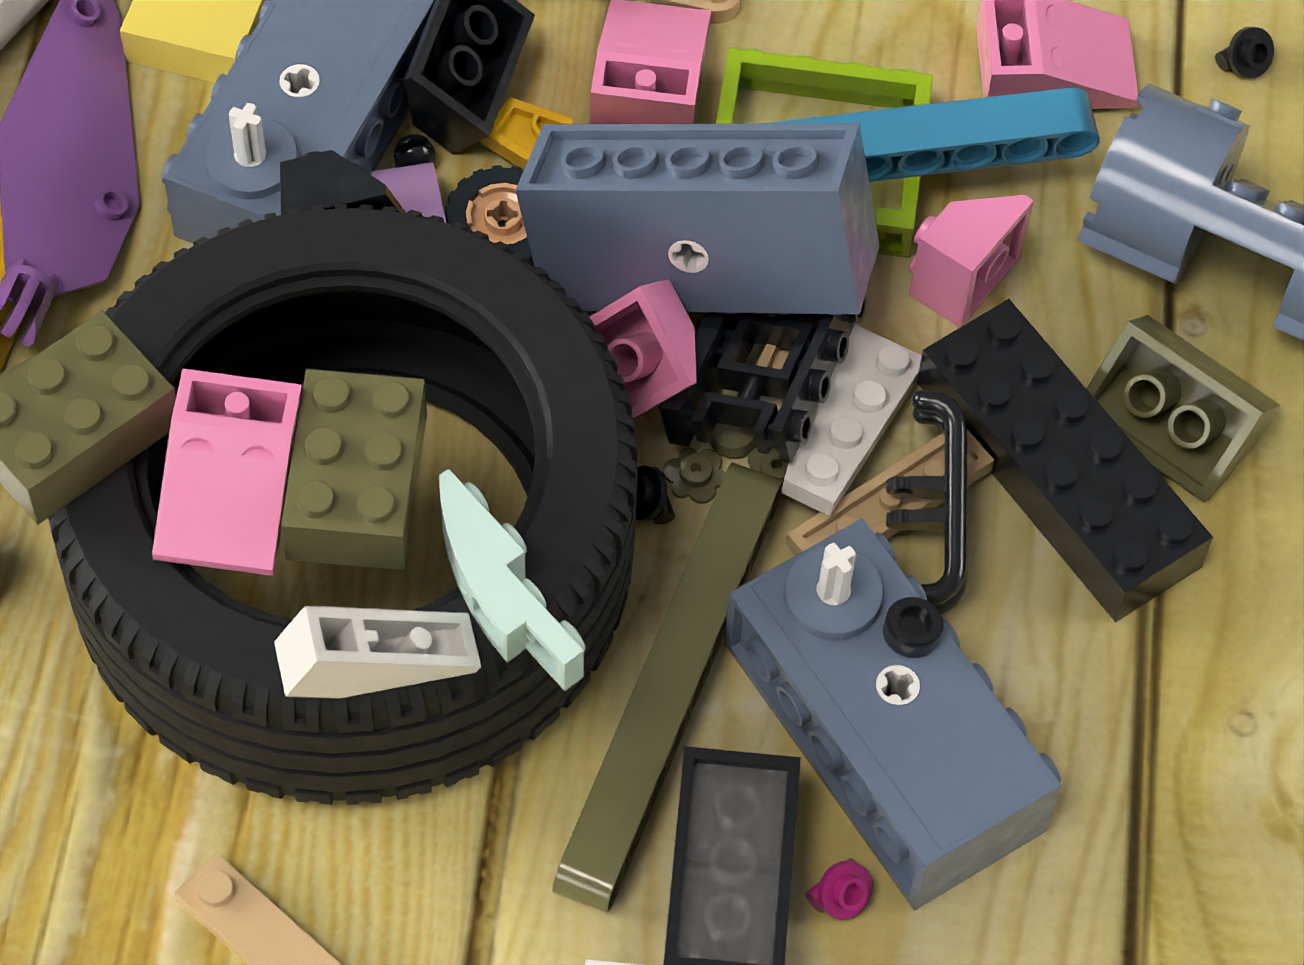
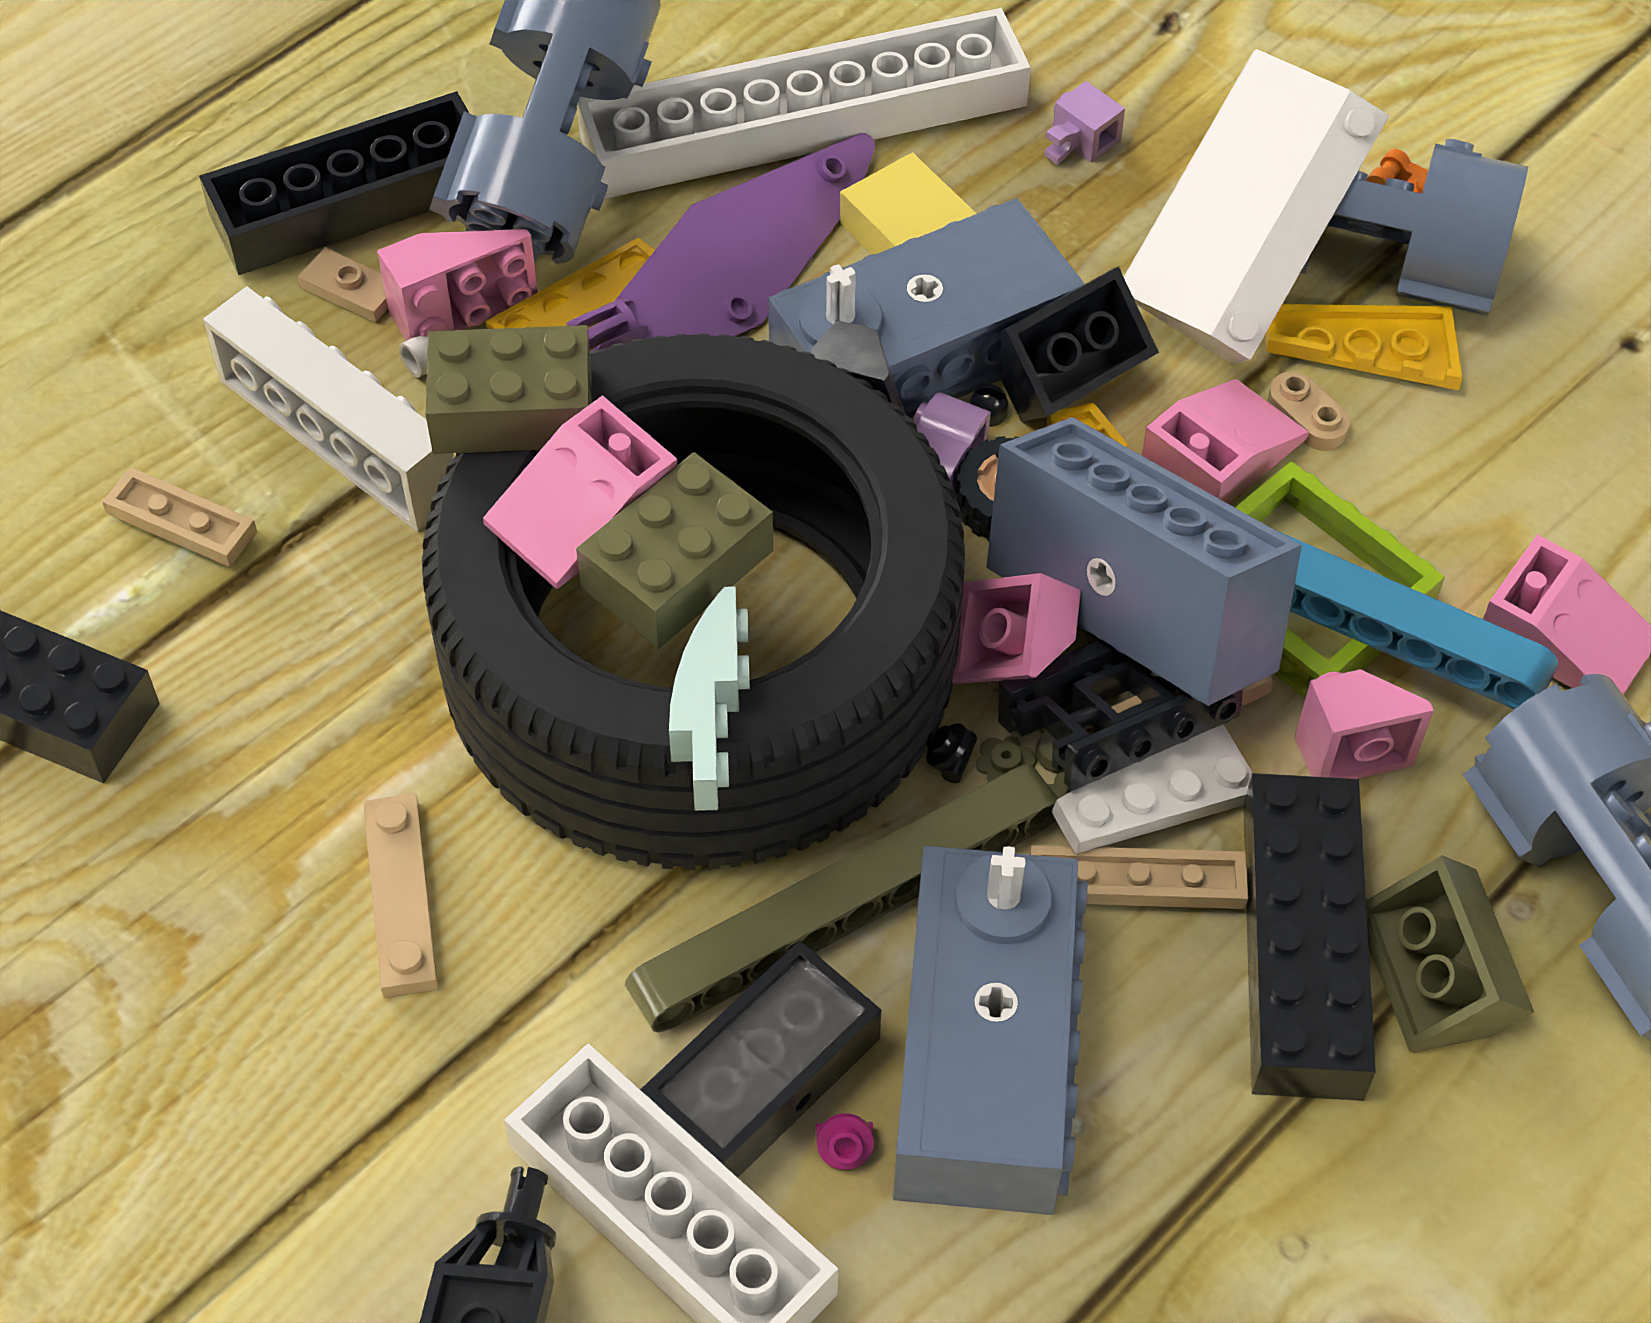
camera: 40 degrees right, 5 degrees down
(372, 650) = (575, 684): white slope -> none
(913, 627) = (1042, 964): black tile -> none
(944, 412) = (1178, 908): black piece -> none

